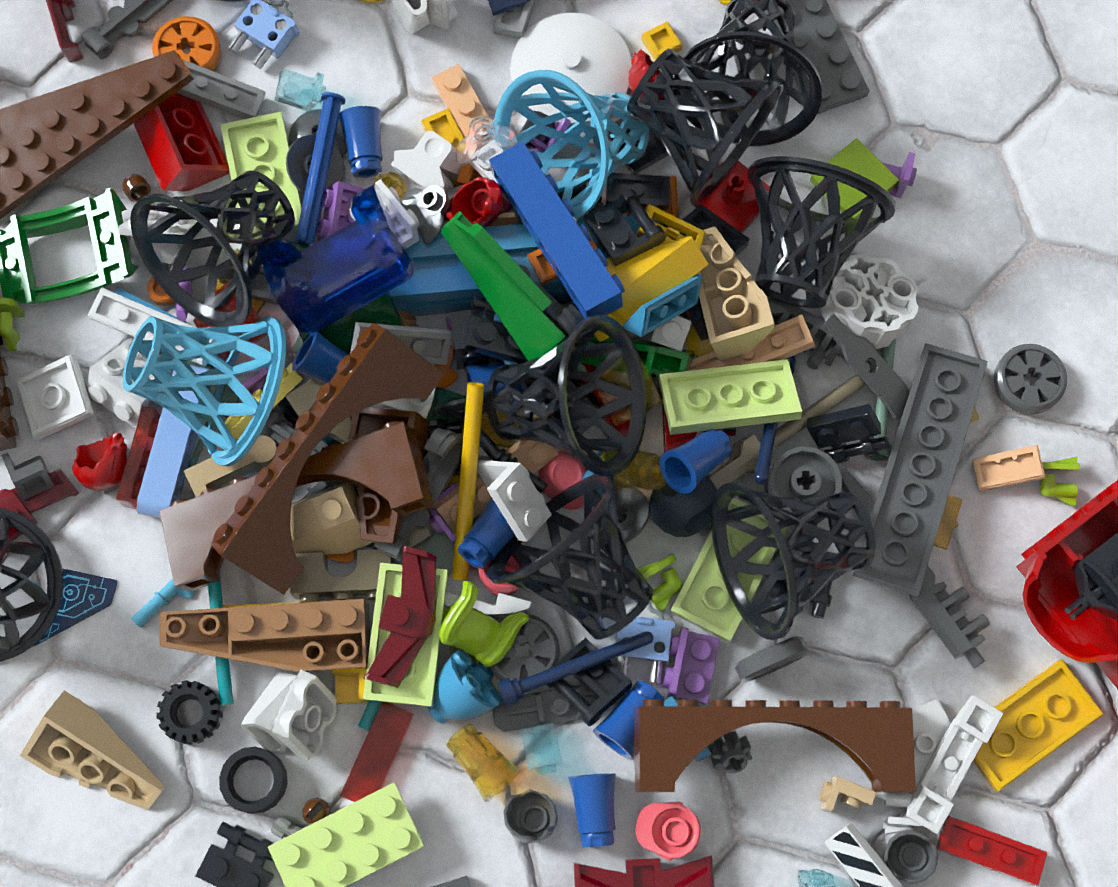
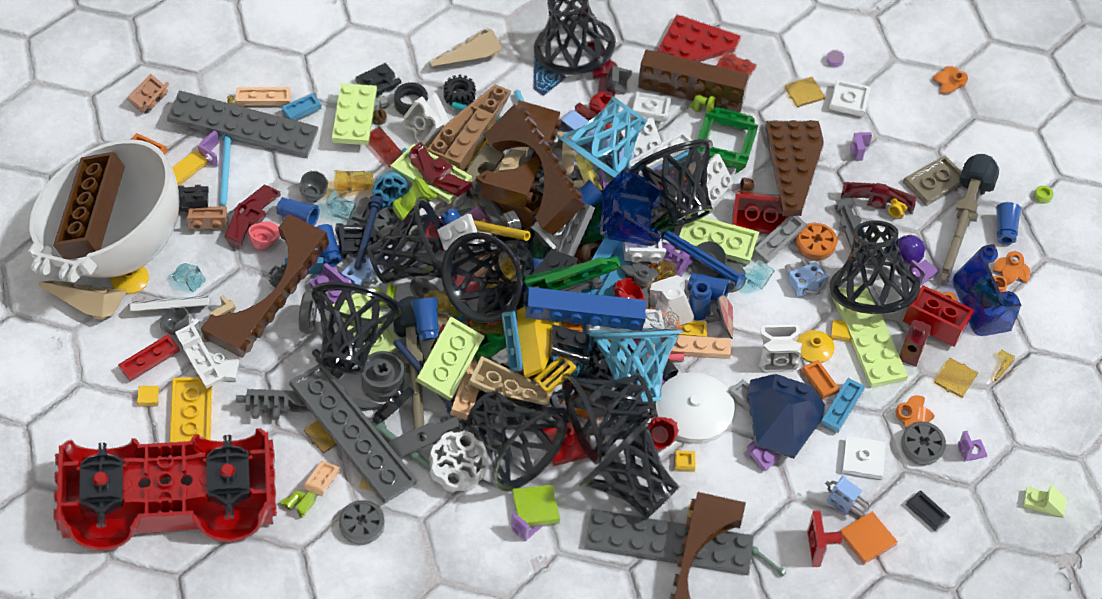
camera: 120 degrees right, 20 degrees down
(397, 133) = (700, 300): none -> blue plant
(405, 103) = (723, 313): none -> shield
(1047, 806) = (148, 395): none -> yellow tile

